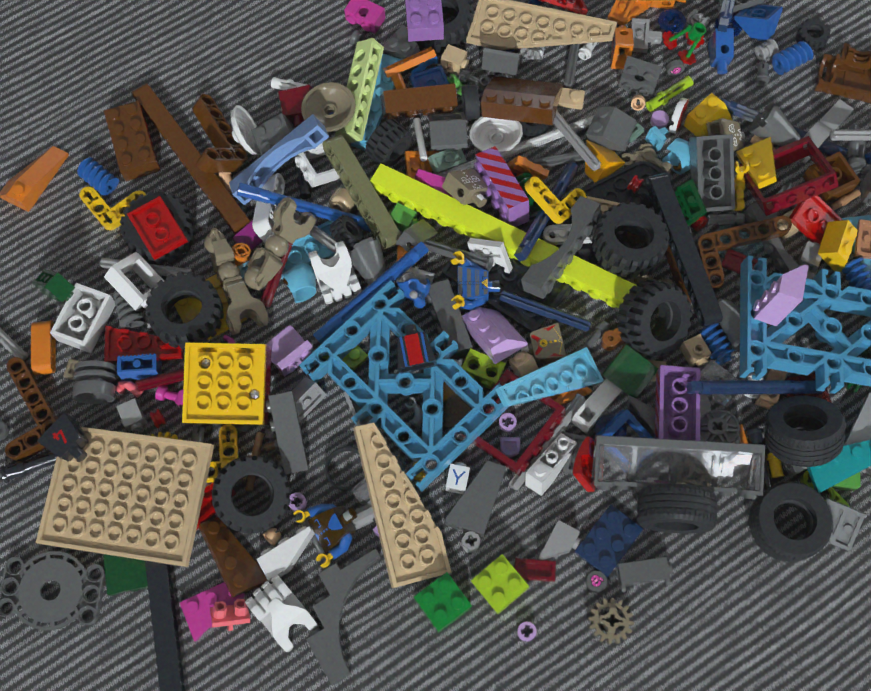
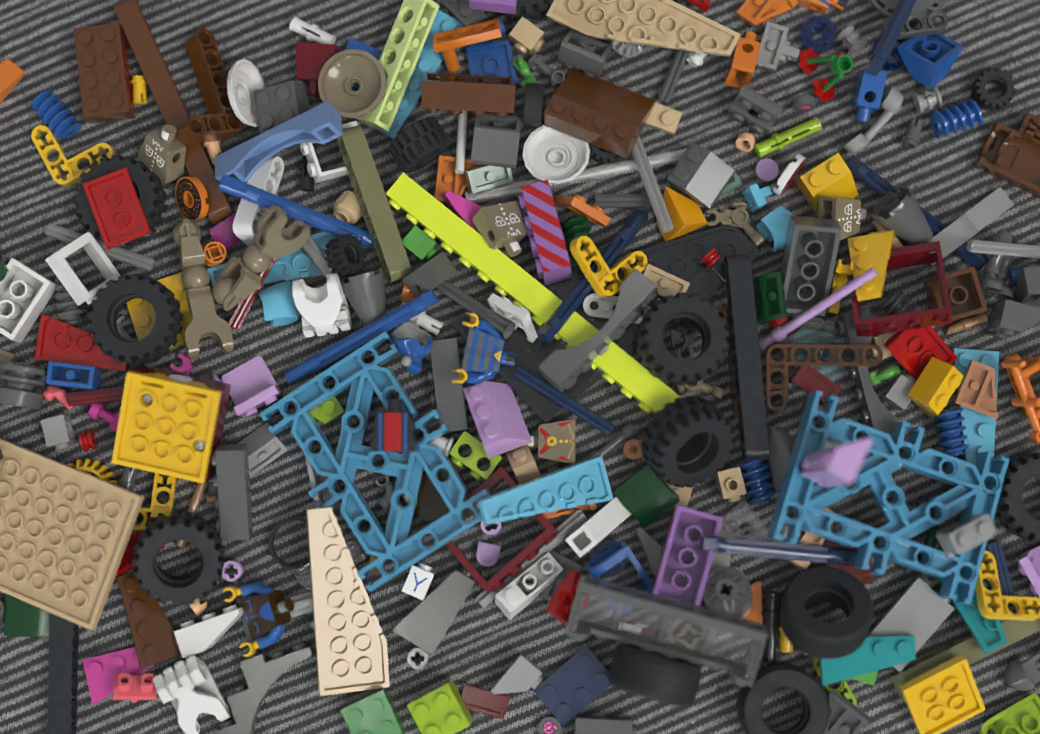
camera: 10 degrees right, 15 degrees up
(161, 150) = (139, 90): none -> yellow pin
(188, 184) = (164, 153): none -> dark tan torso
(208, 211) = (190, 198): none -> tile
(730, 200) = (780, 333): none -> lavender bar
(740, 57) = (890, 103): none -> light grey piece
(796, 244) = (890, 372): none -> bright green arm

